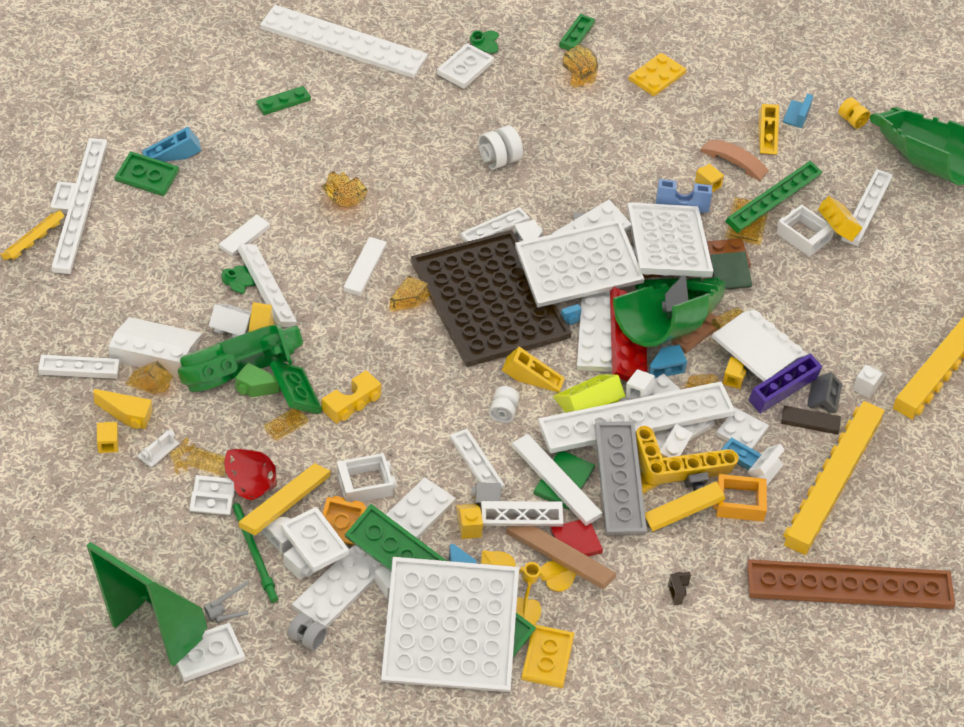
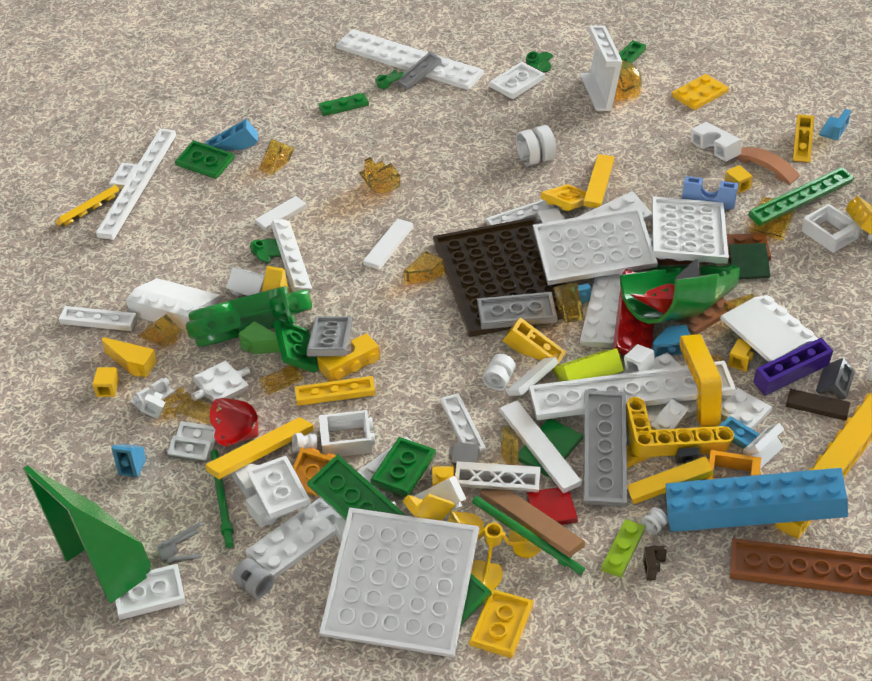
camera: 15 degrees right, 5 degrees down
(154, 519) = (129, 459): none -> dark azure slope
(164, 460) = (153, 405): none -> white tile
(225, 169) = (276, 157): none -> clear yellow slope
(226, 431) = (220, 382): none -> white plate
(323, 490) = (300, 440): none -> white wheel
(324, 69) = (384, 81): none -> green plate
(329, 375) = (330, 336): none -> light grey tile
(344, 433) = (335, 390): none -> yellow plate
(358, 57) = (419, 70): none -> light grey tile
(429, 509) = (403, 467): none -> green tile
(468, 553) = (429, 508): none -> yellow panel
(474, 537) = (447, 489): none -> white slope
(507, 336) = (506, 310): none -> light grey tile
(529, 483) = (509, 446): none -> clear yellow tile
(537, 407) = (532, 376): none -> white tile
(542, 206) = (565, 196): none -> yellow plate
(558, 57) = (604, 70): none -> white panel
(563, 326) = (569, 302): none -> clear yellow slope
(571, 186) = (599, 181): none -> yellow tile
(595, 590) = (562, 558): none -> green bar
(648, 575) = (623, 548): none -> lime plate
(657, 321) = (660, 302): none -> red piece
(674, 547) = (654, 520): none -> white wheel
(693, 139) = (725, 145): none -> white arch
(706, 399) = (706, 379): none -> yellow beam
(767, 522) = (756, 500): none -> dark azure brick

